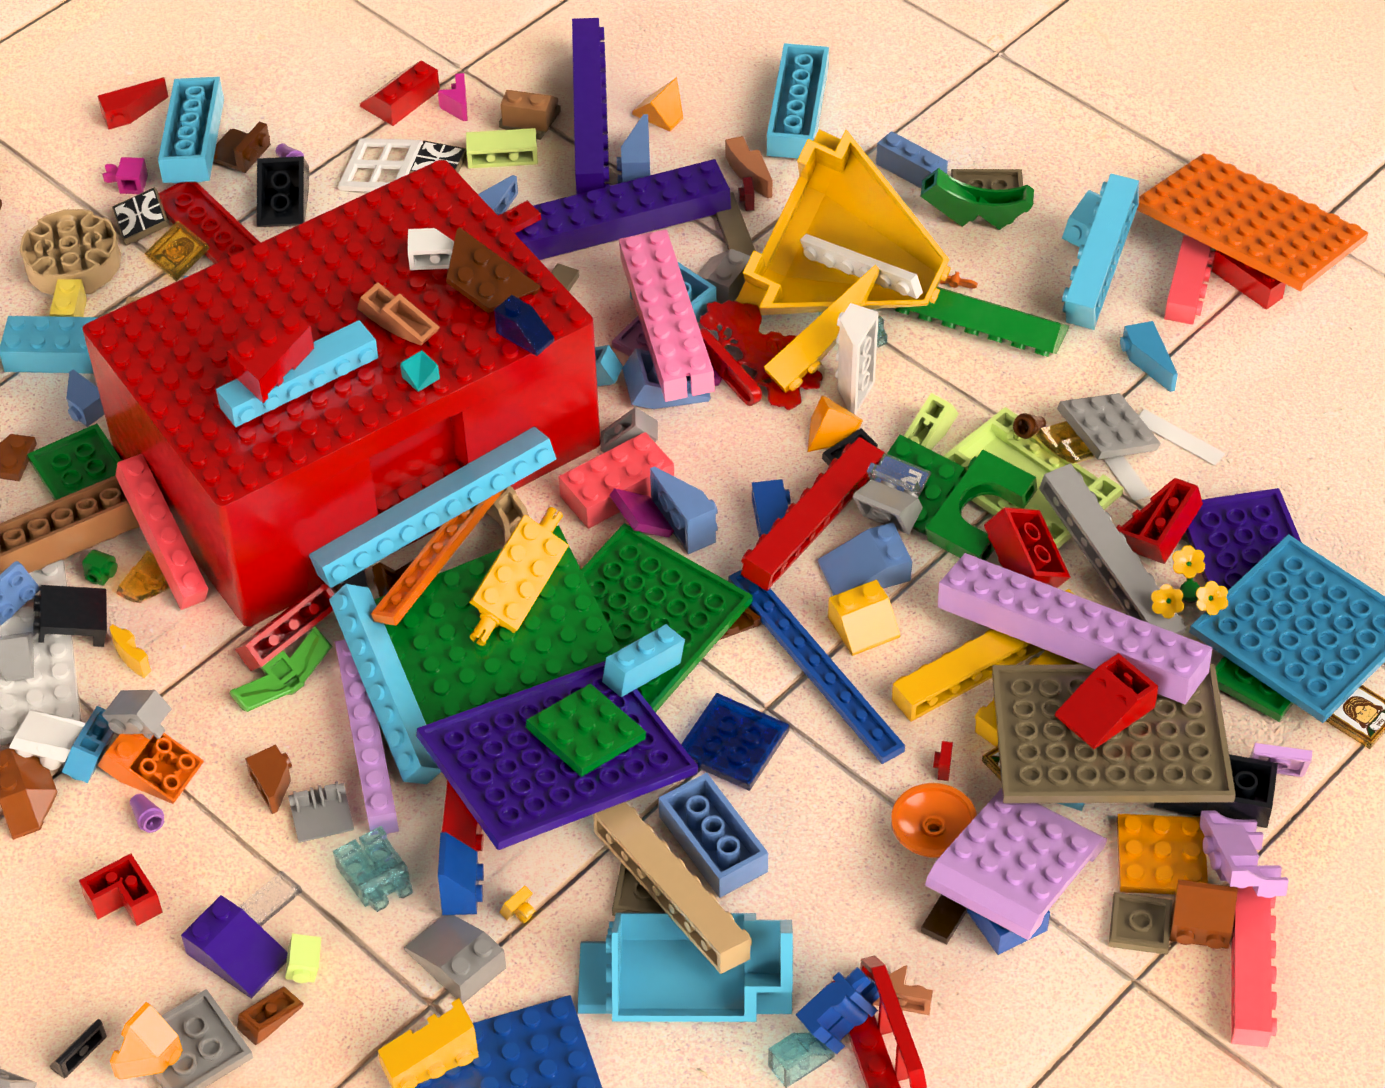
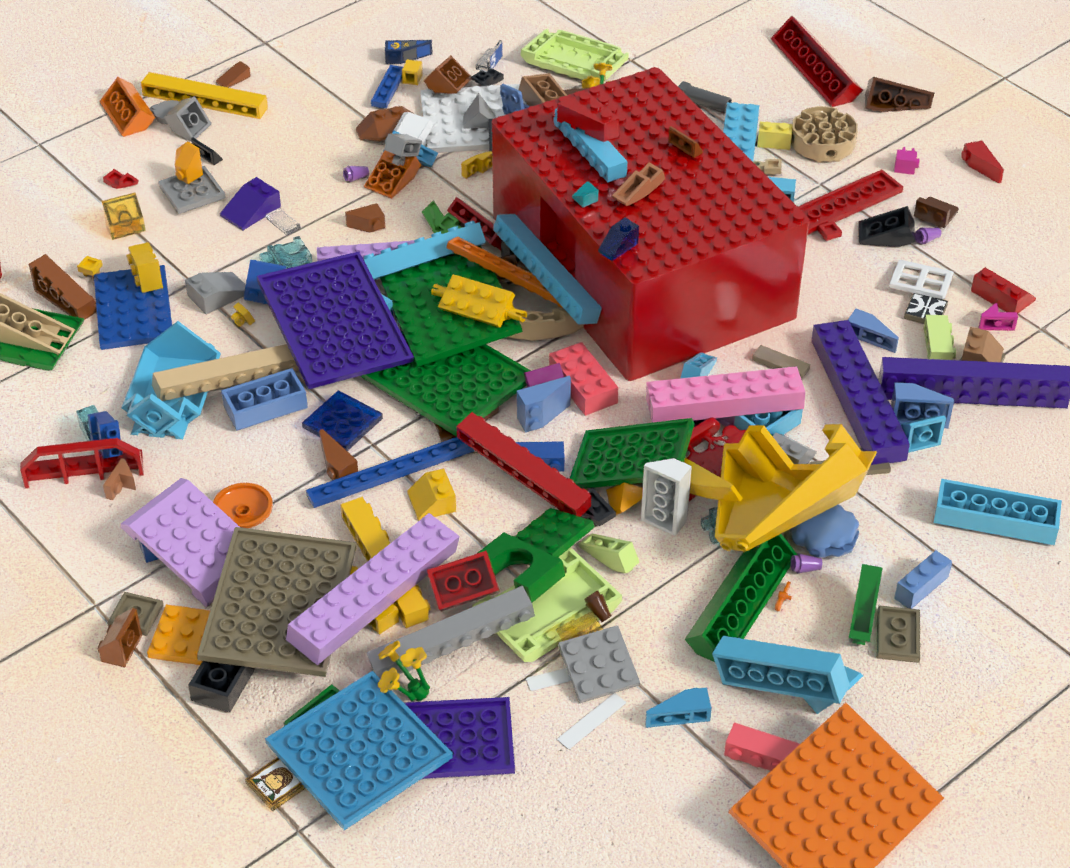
camera: 95 degrees right, 5 degrees down
(119, 886) = (299, 161): red brick -> none
(140, 216) = (863, 165): tile -> none
(177, 251) = (828, 181): clear yellow tile -> none
(191, 130) = (945, 181): medium azure brick -> none
(268, 1015) = (204, 219): dark orange slope -> none
(292, 276) = (684, 142): none -> dark orange slope
(303, 958) = (232, 228): yellowish green brick -> none
(321, 812) = (338, 237): light grey hinge -> none
(429, 249) = (702, 200): white slope -> none
(485, 275) = (670, 221): reddish brown wing -> none
(521, 216) = (836, 327): red plate -> none
(585, 729) = (345, 329): green plate -> none
(627, 427) = (627, 391): light grey slope -> none
(643, 660) = (400, 363): medium azure brick -> none
(662, 106) = (990, 433): light orange slope -> none
(673, 150) = (924, 432): none -> medium azure slope
(746, 194) = (885, 474): dark red plate -> none
(748, 164) = (919, 478): nougat slope -> none
(774, 406) = (620, 452): none -> green plate
(812, 736) = (337, 459): none -> dark orange slope
(858, 264) = (756, 505): white plate -> none
(868, 557) = (484, 507): medium blue slope -> none
(888, 505) = (522, 506): light grey slope -> none
(899, 473) = (549, 515): clear panel -> none
(942, 760) = (295, 523): red plate -> none
(1108, 701) = (293, 589): red slope -> none
(1163, 521) = (481, 673): red wedge -> none
(1233, 854) = (154, 652): lavender bracket -> none
(1252, 970) = (81, 664): coral brick -> none
(1290, 760) = (236, 705): lavender tile -> none

